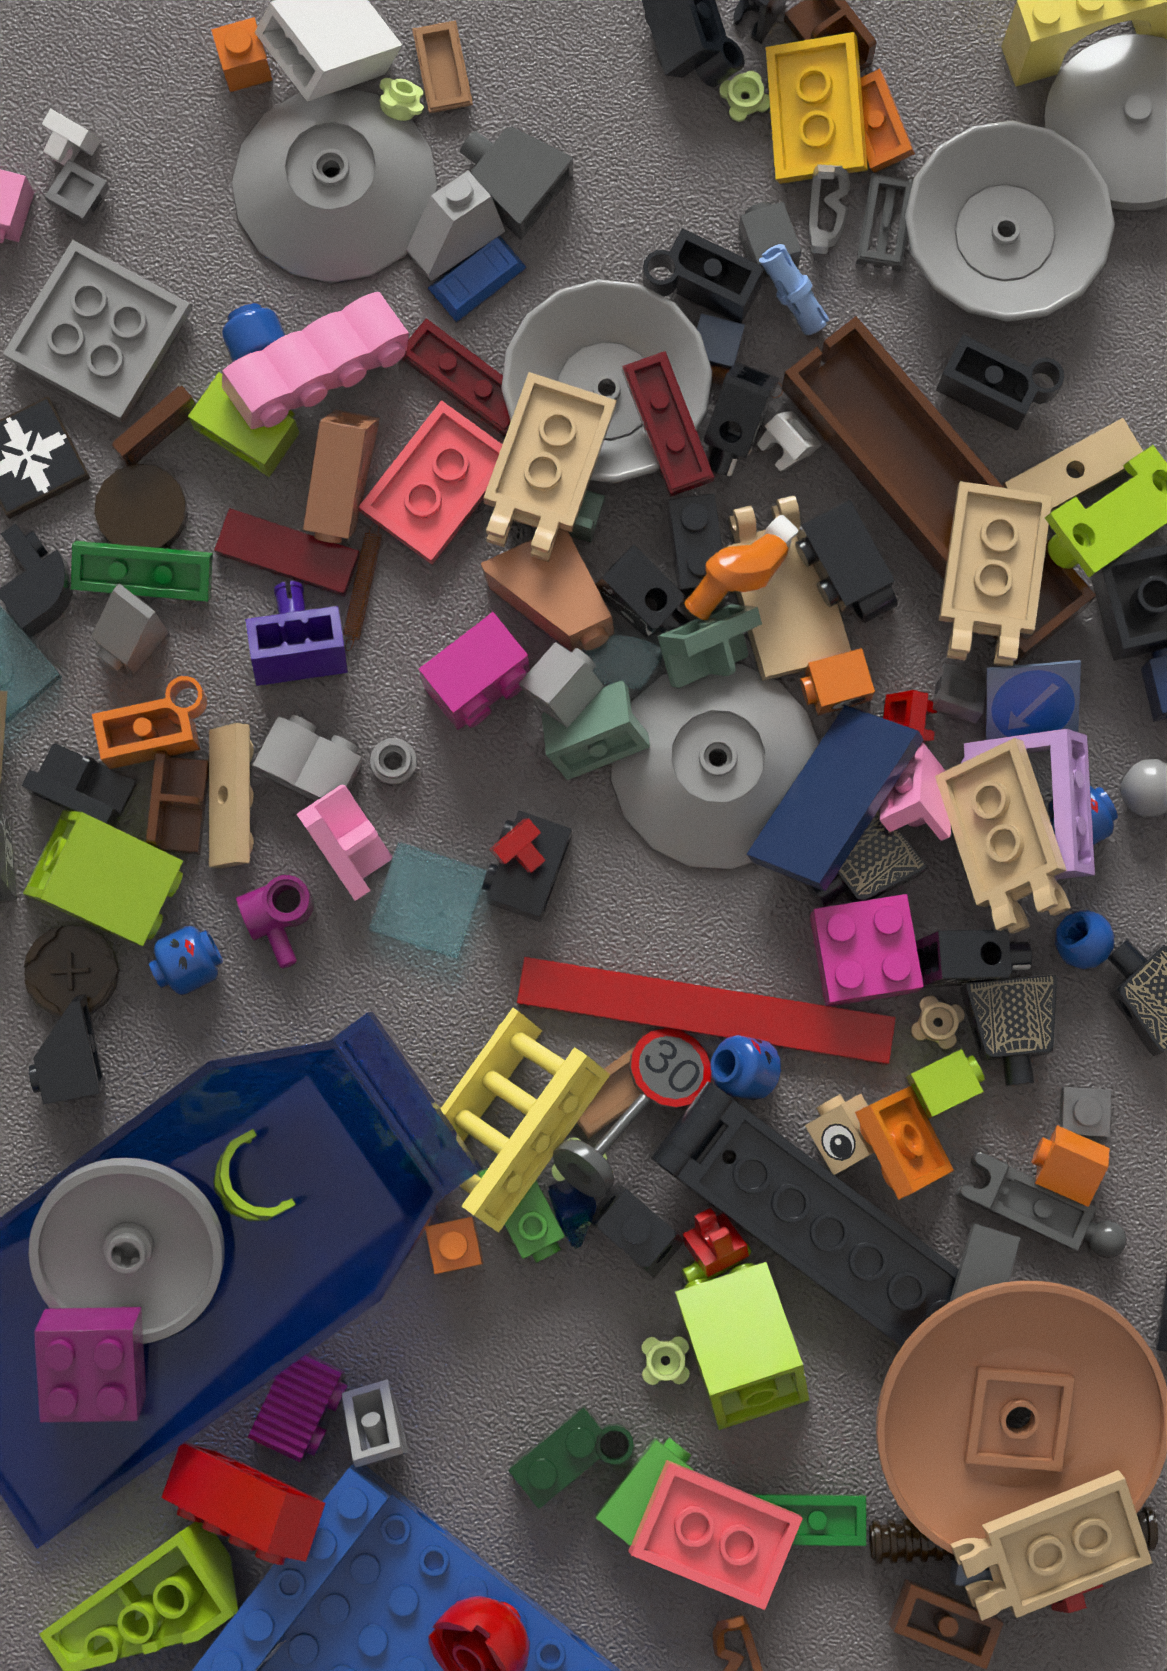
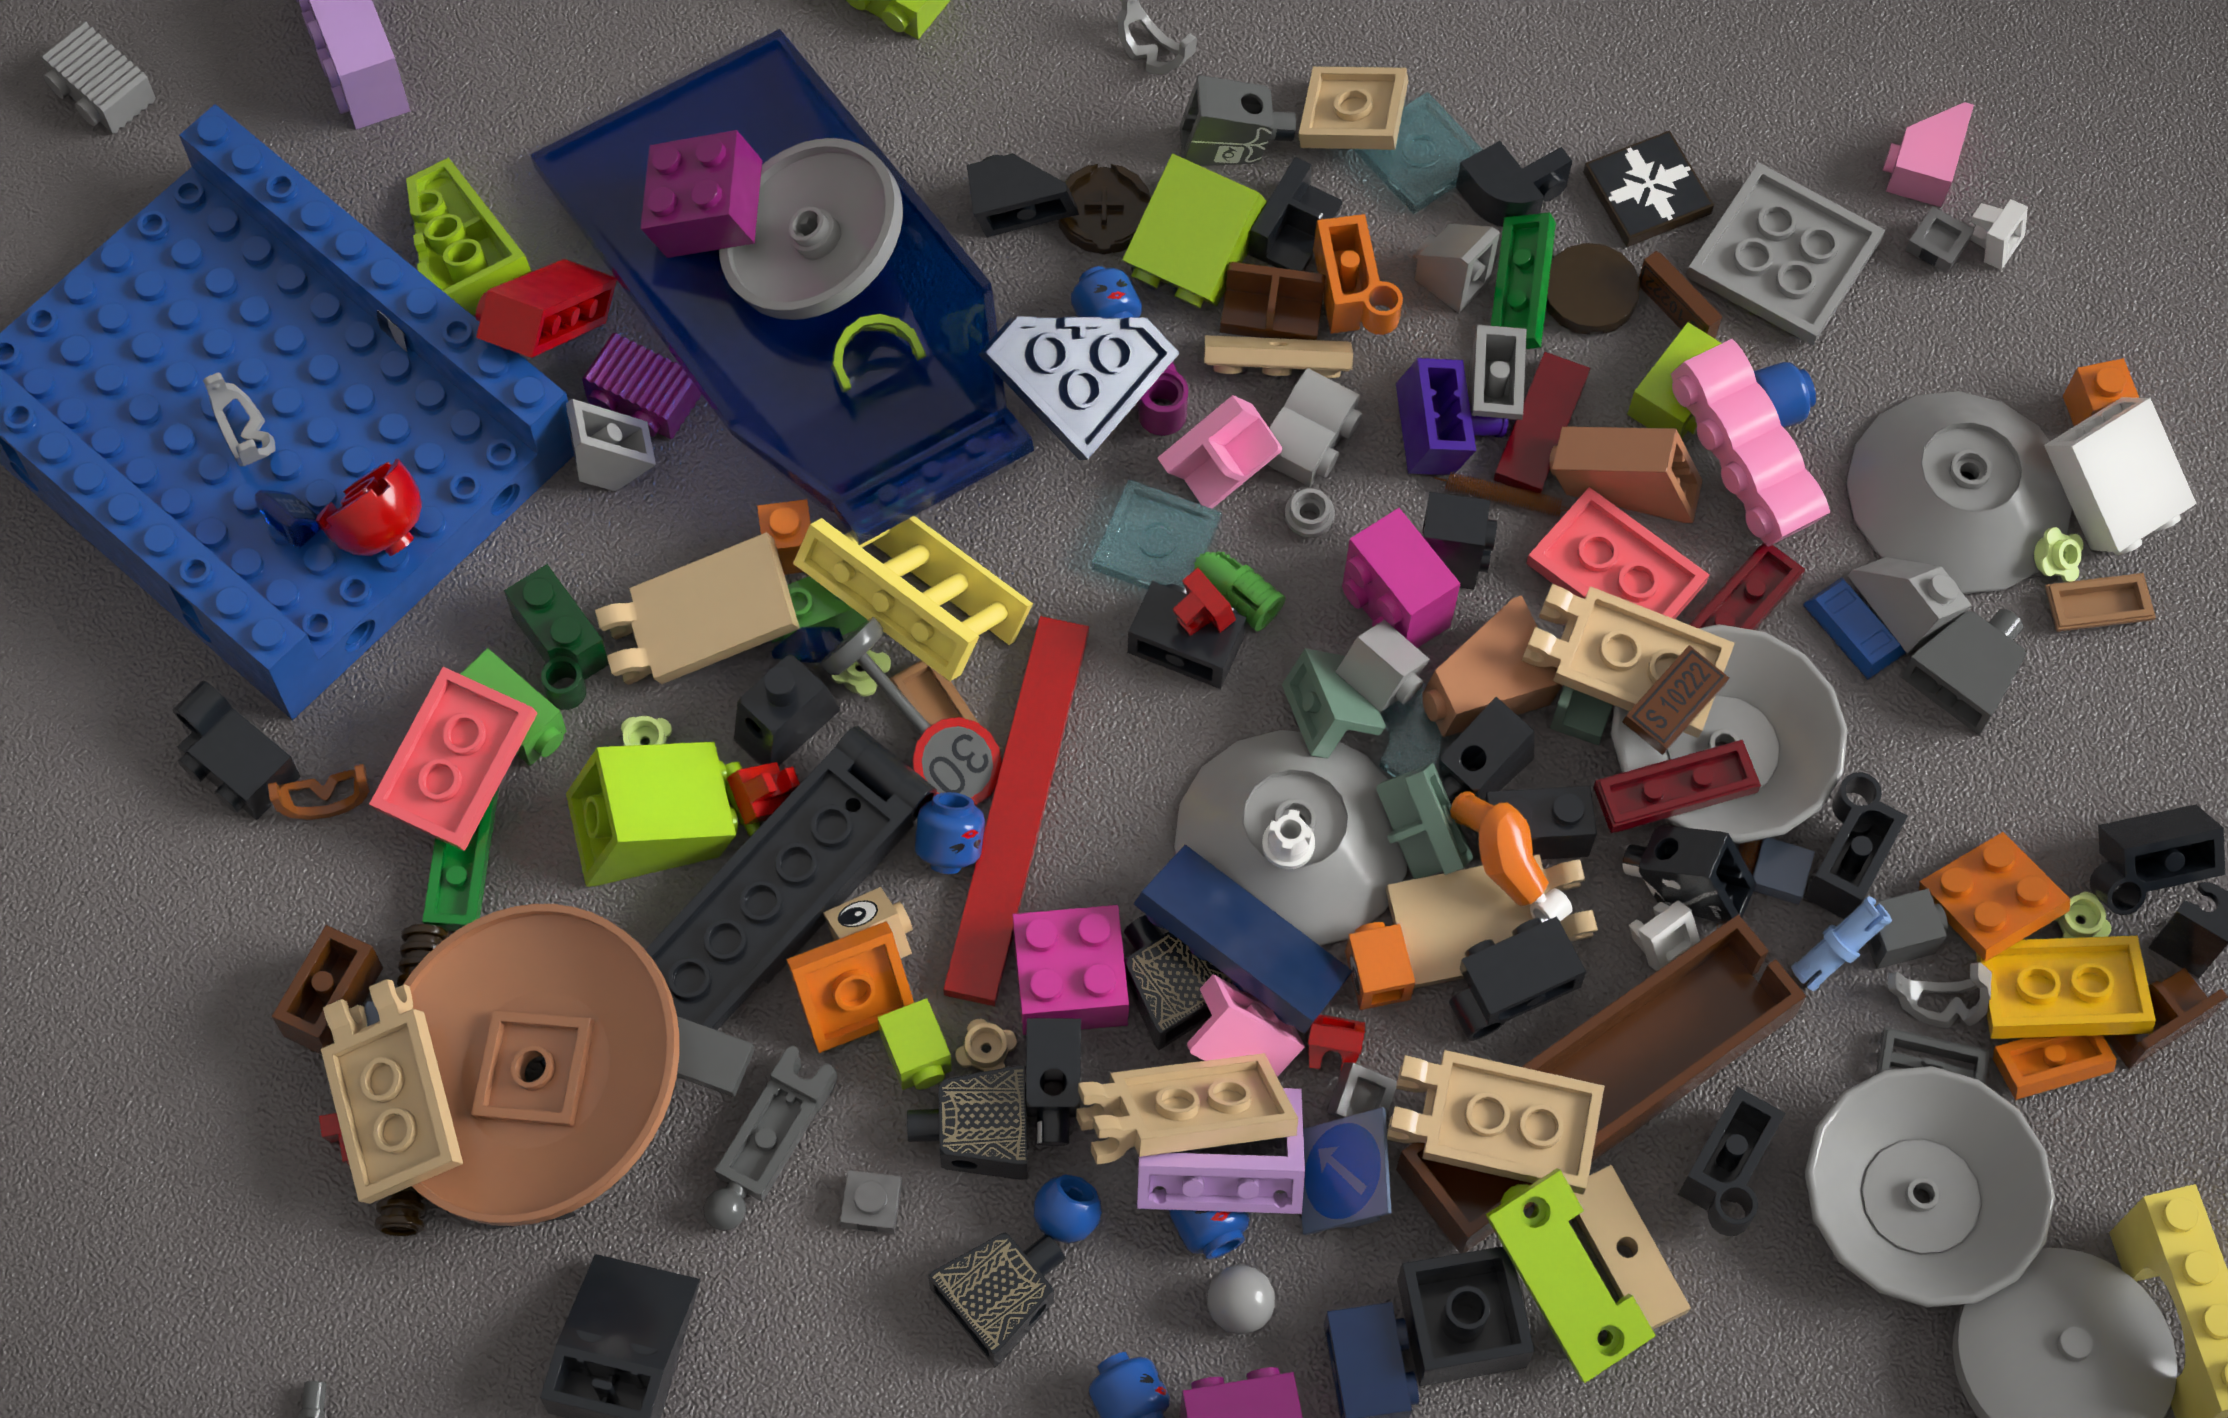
camera: 90 degrees right, 15 degrees down
(255, 588) = (1497, 372): none -> light grey slope
(285, 973) = (1079, 371): none -> plate
(427, 621) = (1460, 534): none -> black brick
(476, 821) = (1242, 588): none -> bright green hinge
(544, 1314) = (702, 613): none -> tan tile
(594, 421) = (1675, 700): none -> reddish brown tile
(733, 164) = (1995, 896): none -> orange plate
(745, 771) = (1288, 841): none -> white hose
(1070, 1165) = (810, 1169): orange brick -> none

